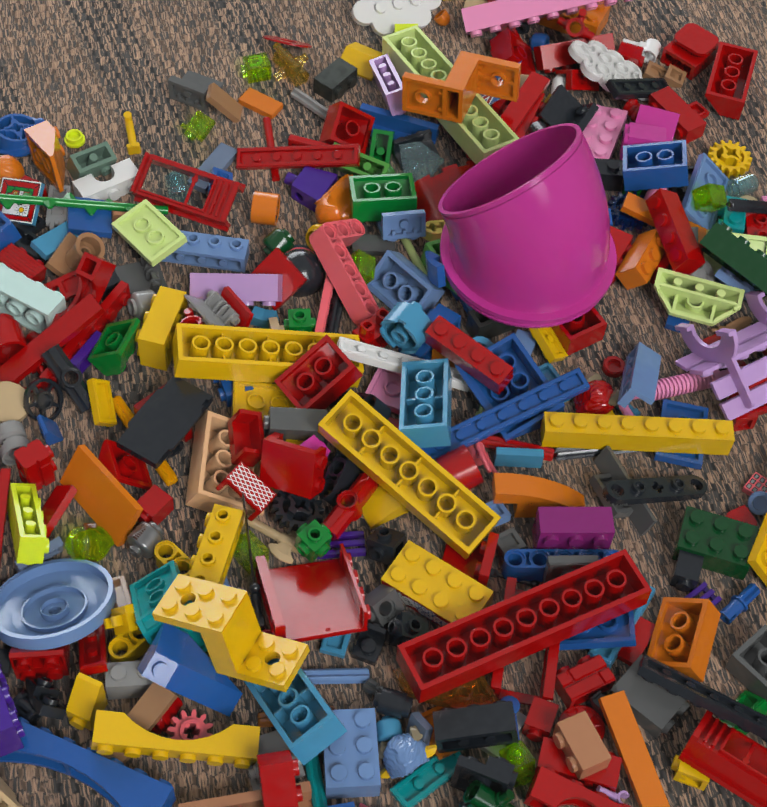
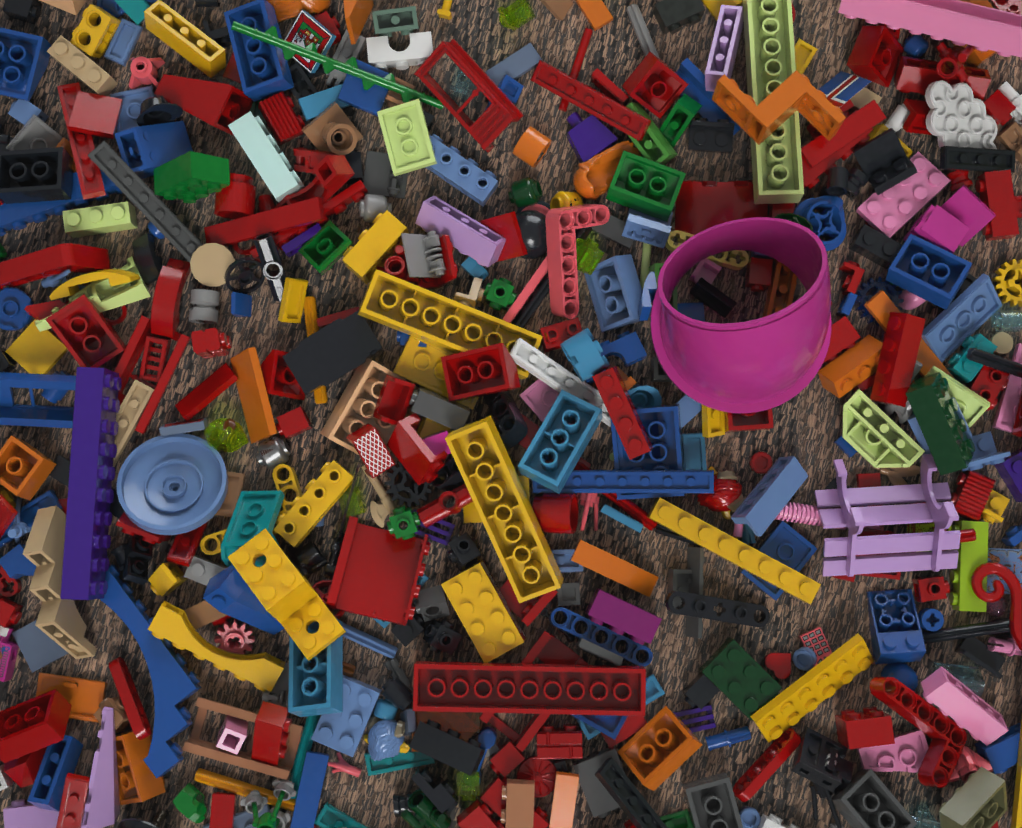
camera: 30 degrees right, 30 degrees up
(27, 524) = (180, 397): neon yellow brick -> none
(122, 620) = (214, 530): yellow tile -> none
(419, 160) = (704, 156): clear light blue slope -> none
(709, 197) = (959, 332): clear neon green brick -> none

